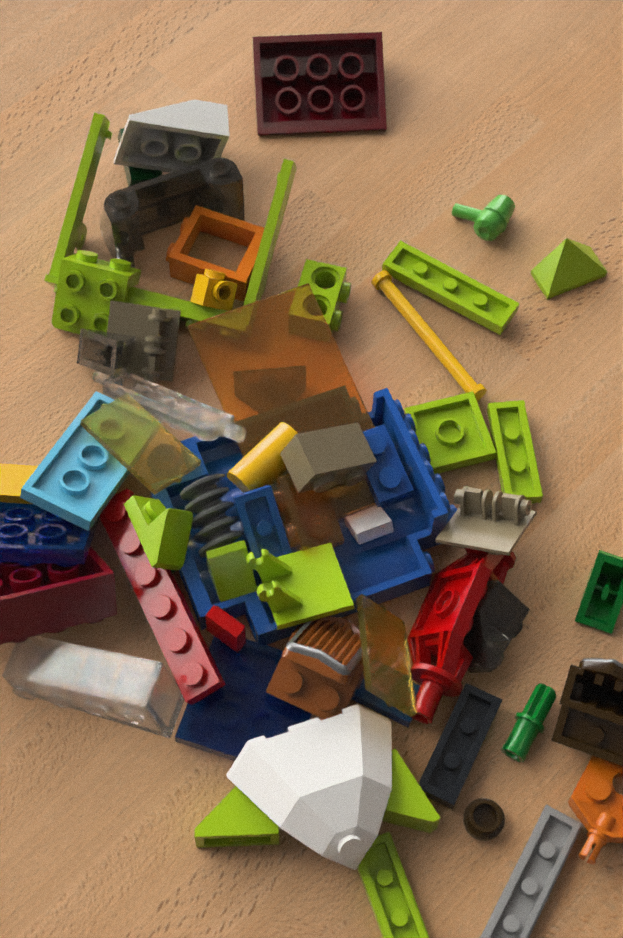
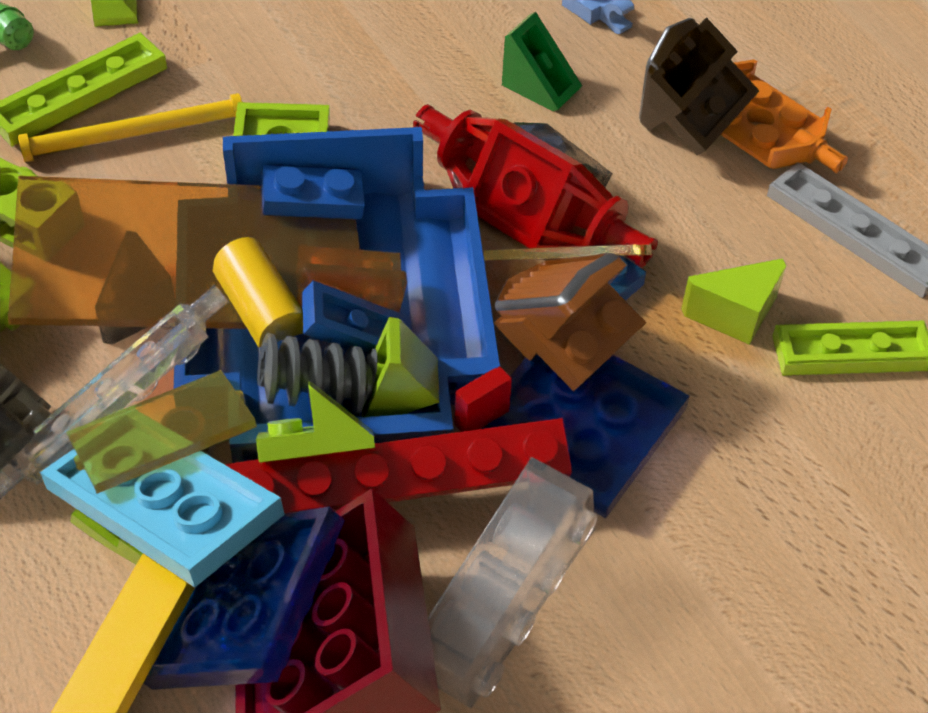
camera: 75 degrees left, 10 degrees down
(236, 823) = (736, 468): lime slope -> none
(301, 585) = (458, 298): lime plate -> none
(323, 781) = (720, 351): white brick -> none
(328, 458) = (297, 218): dark tan brick -> none
(369, 524) = (381, 230): white tile -> none
(459, 745) = (685, 233): black plate -> none
(483, 819) = (775, 238): dark brown plate -> none
(487, 521) = (442, 105): dark tan hinge -> none
(514, 450) = (345, 93): lime plate -> none
(529, 723) = (673, 170): green axle -> none

